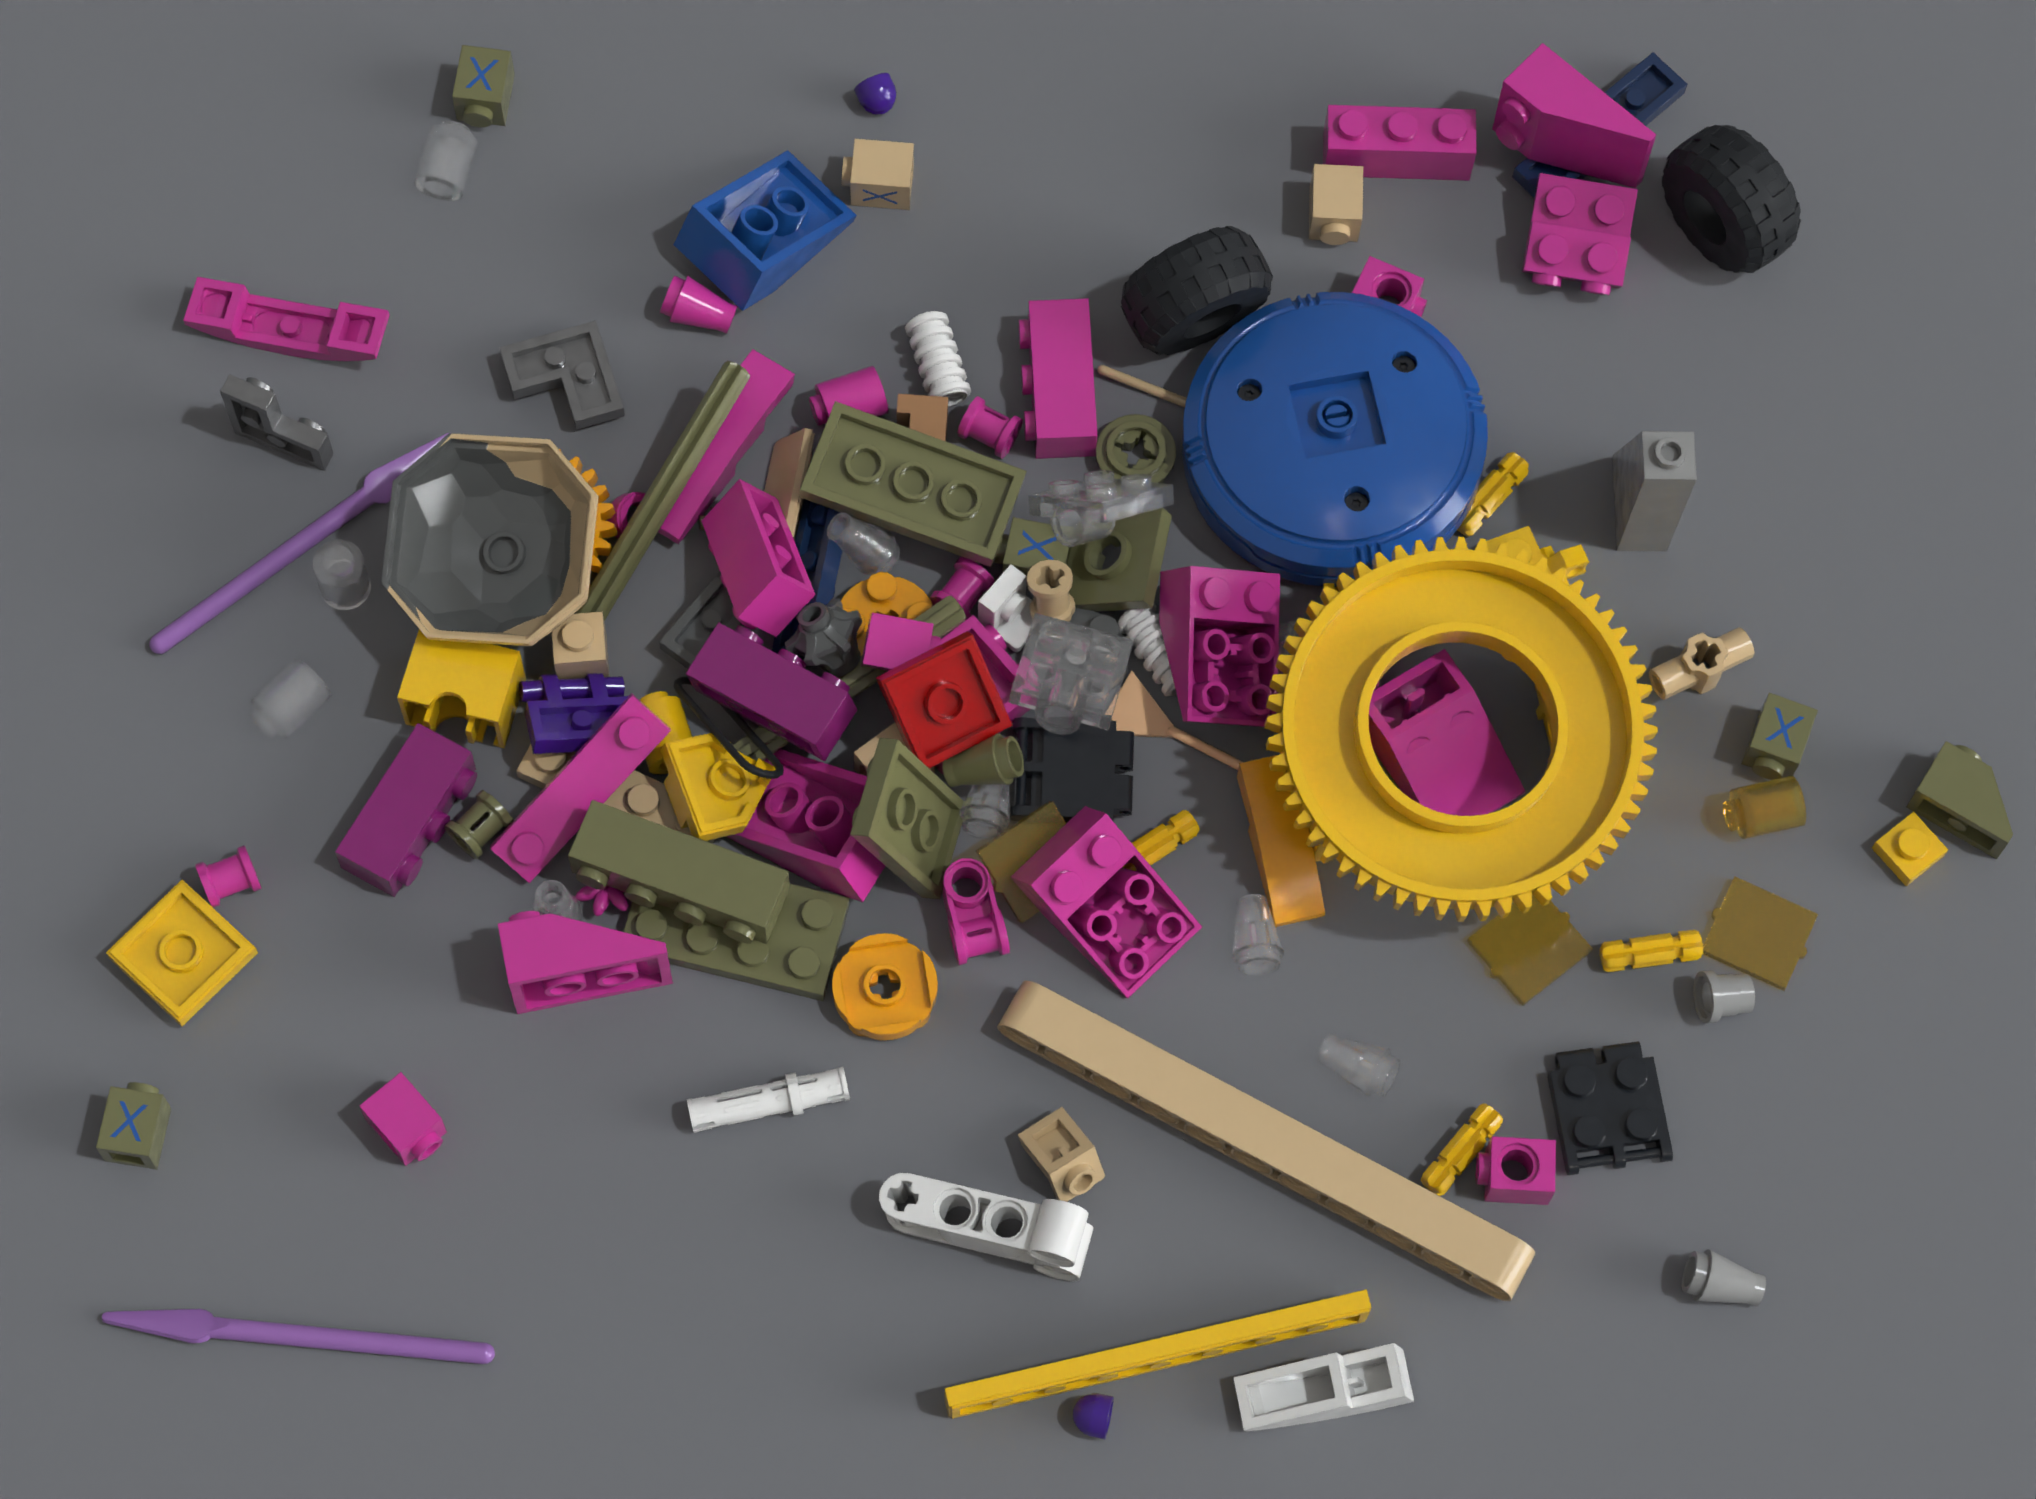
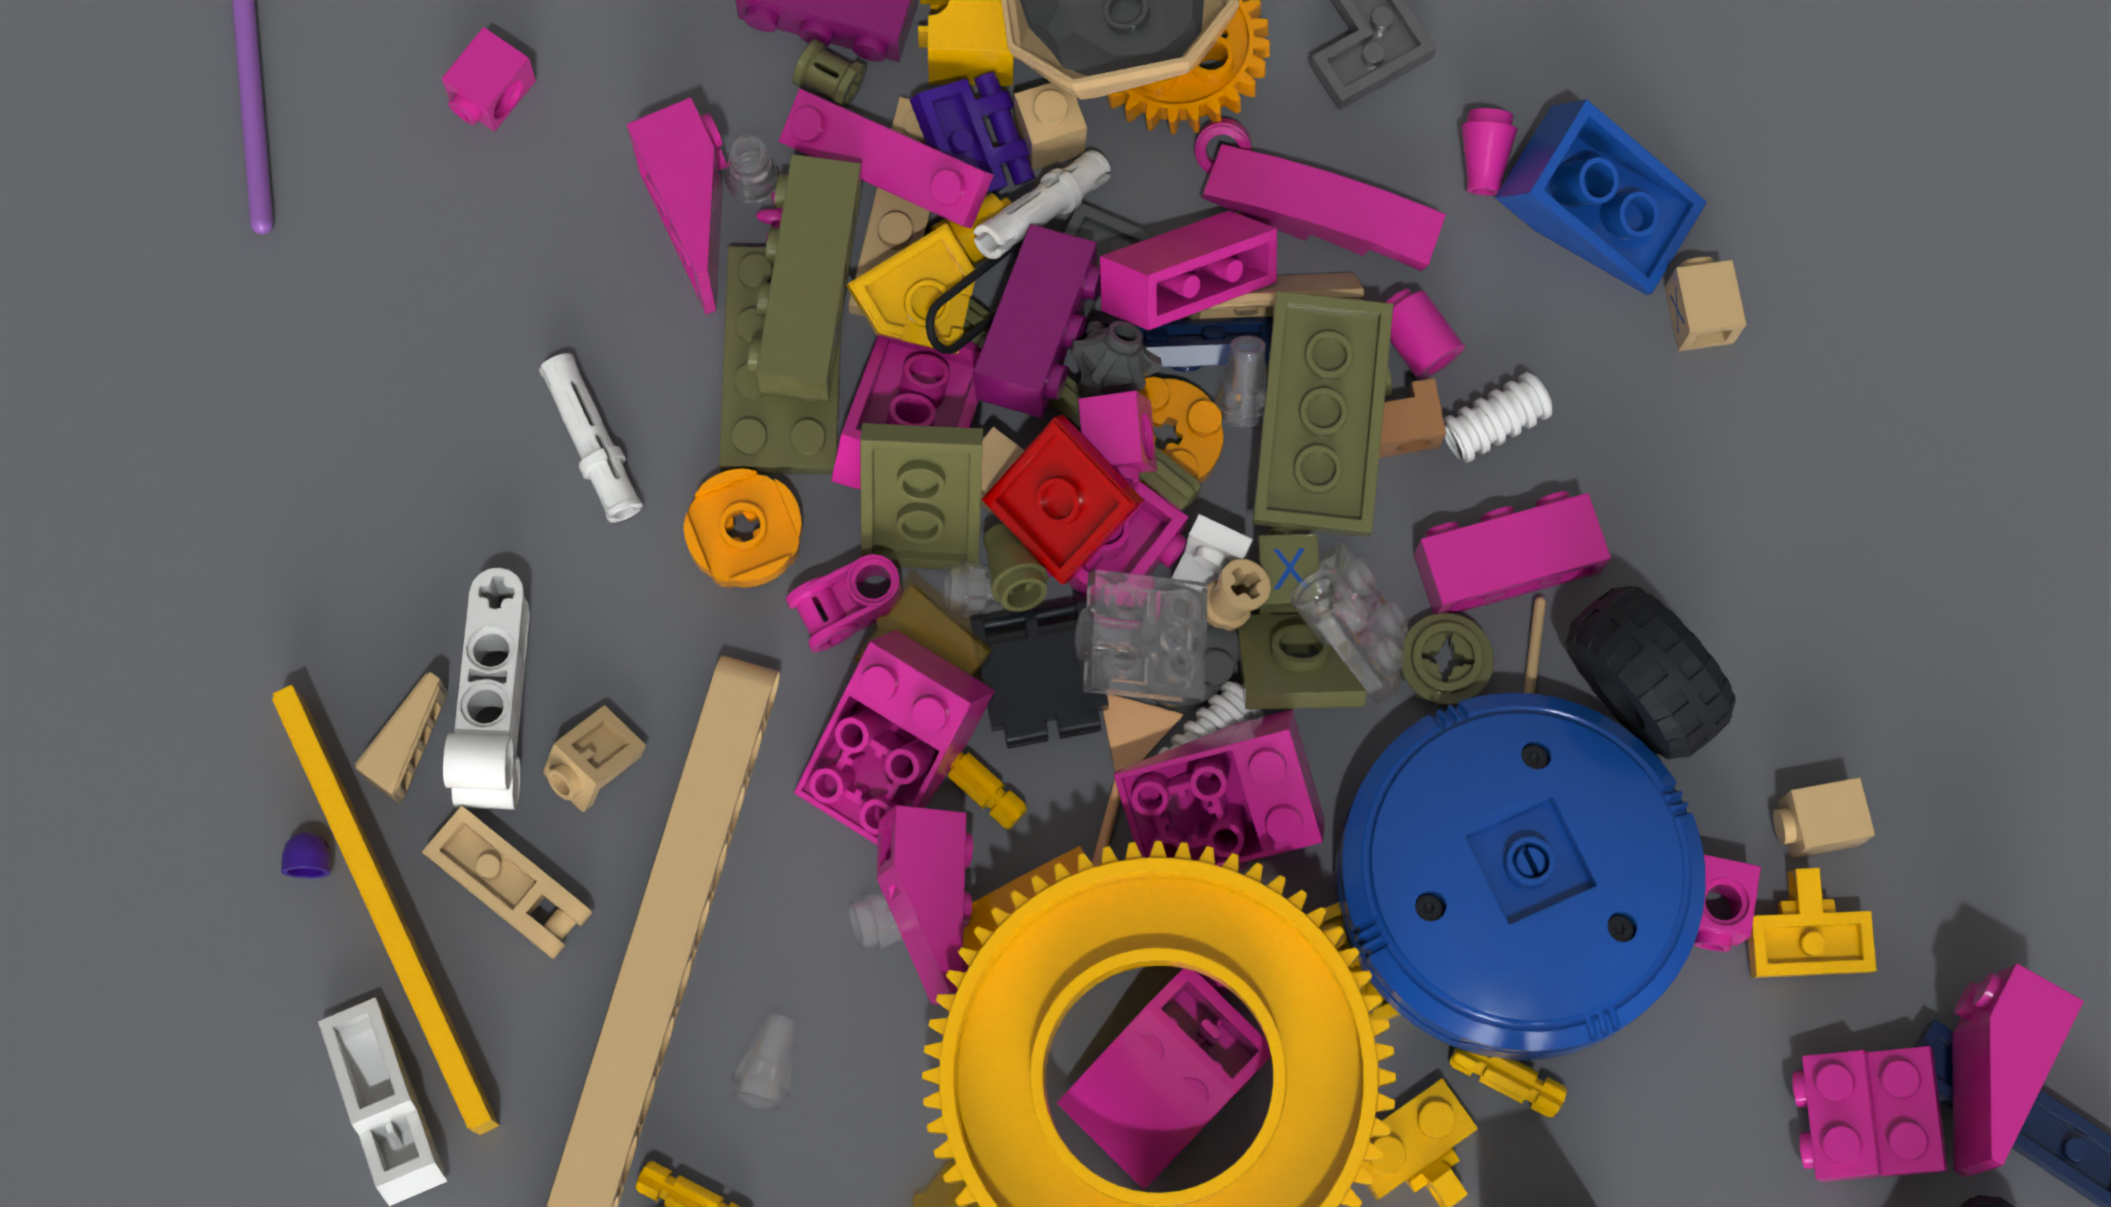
camera: 75 degrees right, 5 degrees up
(650, 655) = (1056, 194): none -> white pin
(666, 488) = (1247, 160): olive axle -> none
(876, 93) = (1805, 279): dark purple hinge -> none
(965, 585) = (1223, 504): dark pink bush -> none
(990, 427) = (1429, 491): dark pink bush -> none
(1018, 1316) = (398, 748): none -> tan slope
(1154, 1249) = (505, 880): none -> tan plate
(1249, 894) = (923, 882): none -> dark pink slope
(1401, 141) = (1926, 875): dark pink brick -> none
(1426, 240) = (1810, 935): none -> yellow hinge

